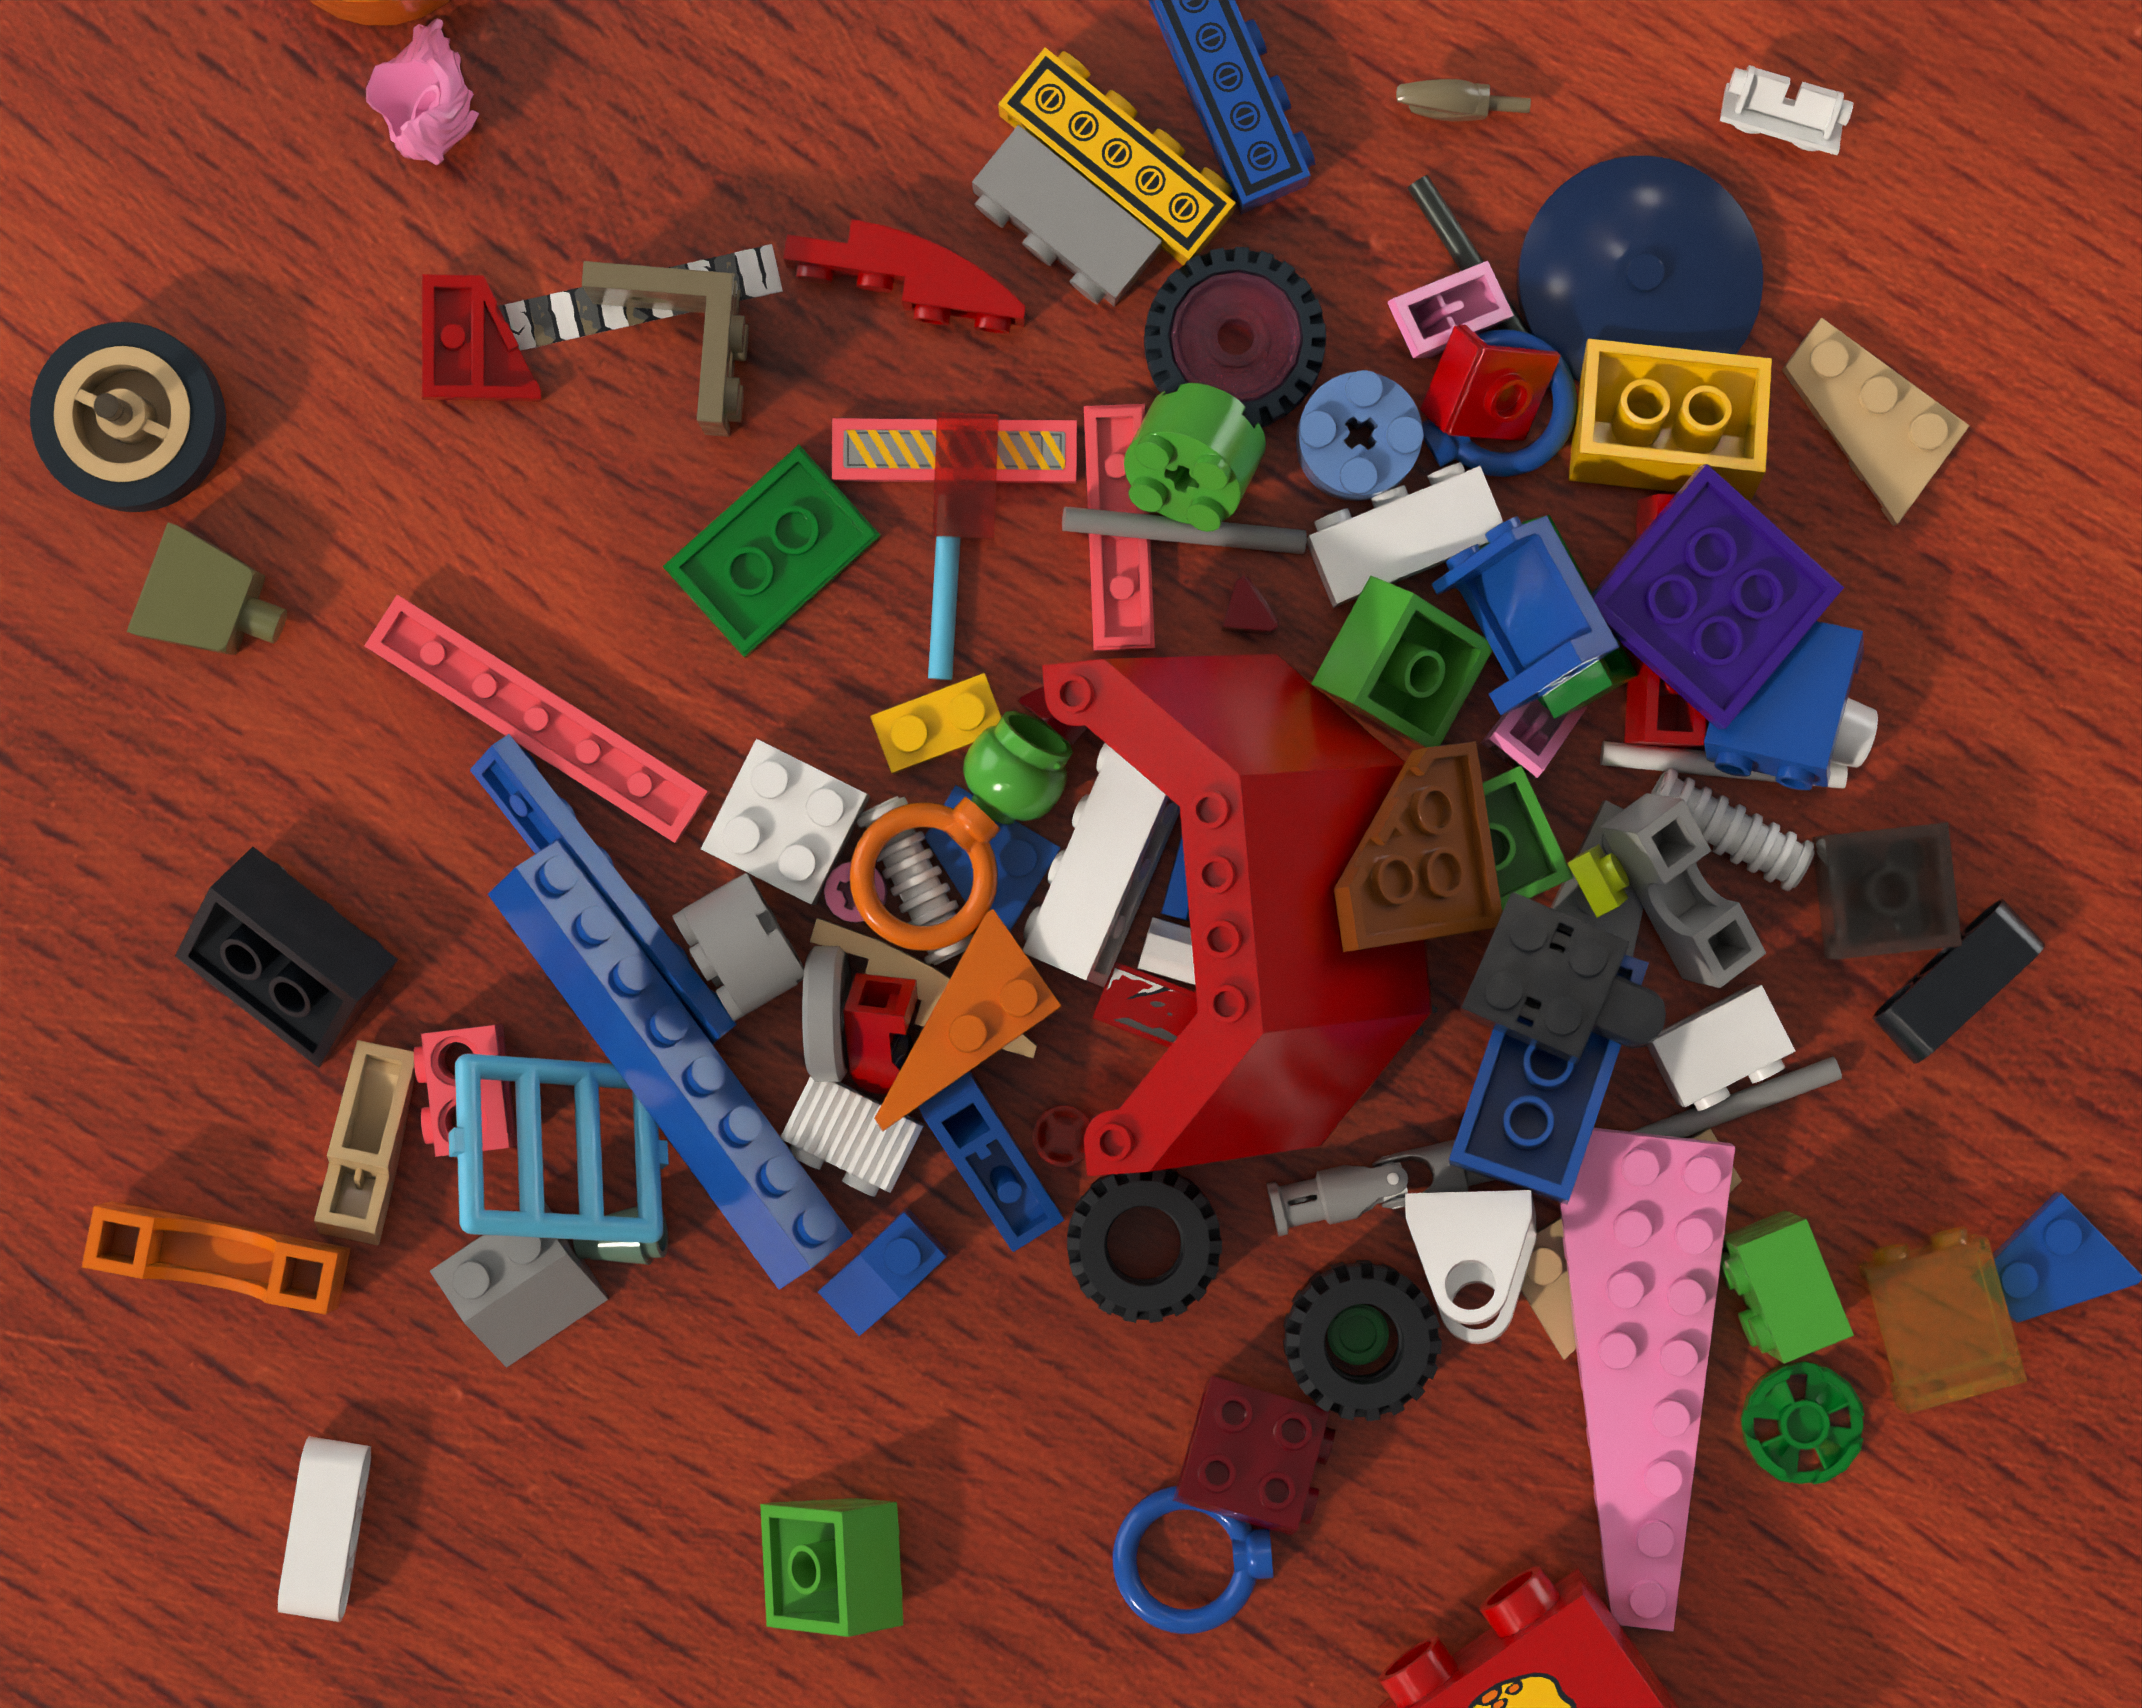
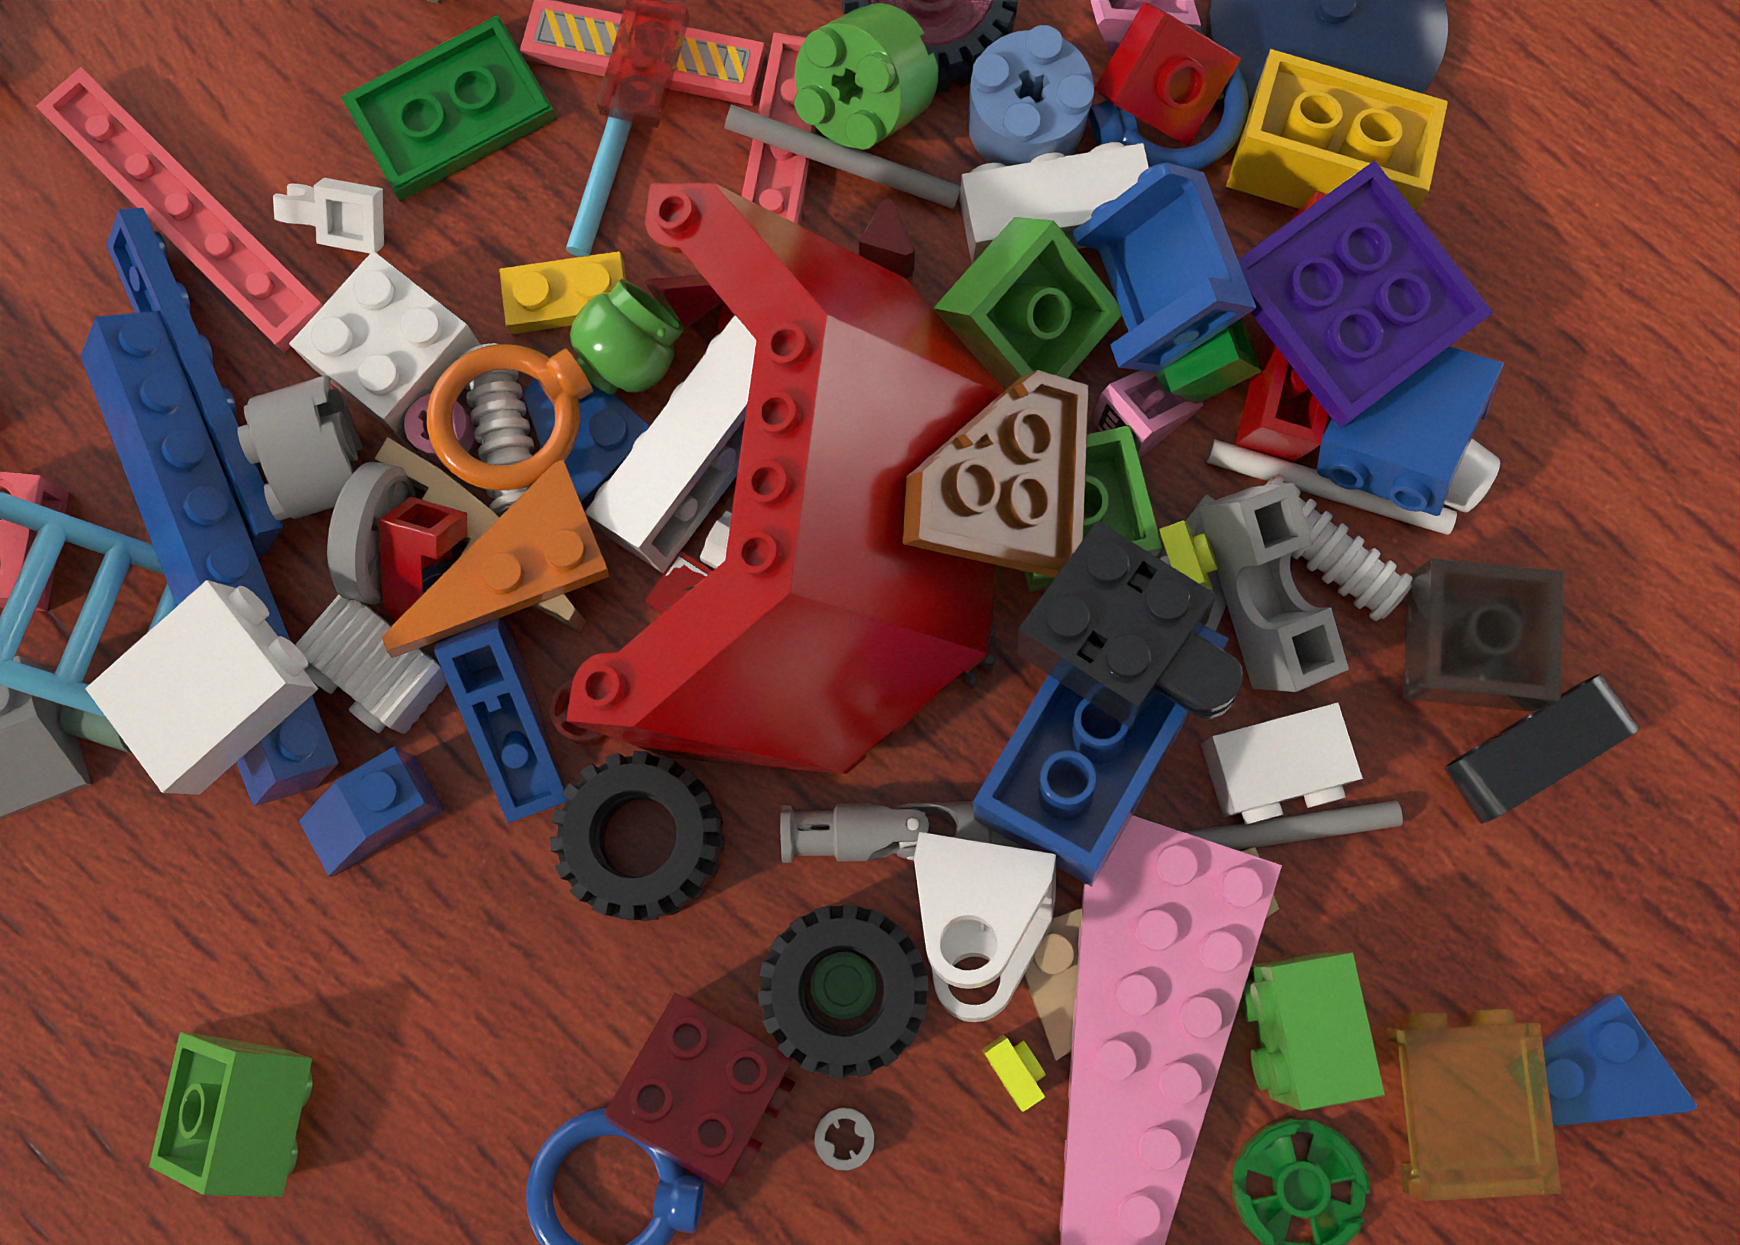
camera: 15 degrees right, 10 degrees down
(698, 692) = (342, 211): none -> white plate
(731, 1200) = (202, 687): none -> white brick
(1374, 1481) = (826, 1148): none -> light grey bush
(1530, 1376) = (1017, 1070): none -> neon yellow plate
(1875, 416) = (1537, 191): tan wing -> none

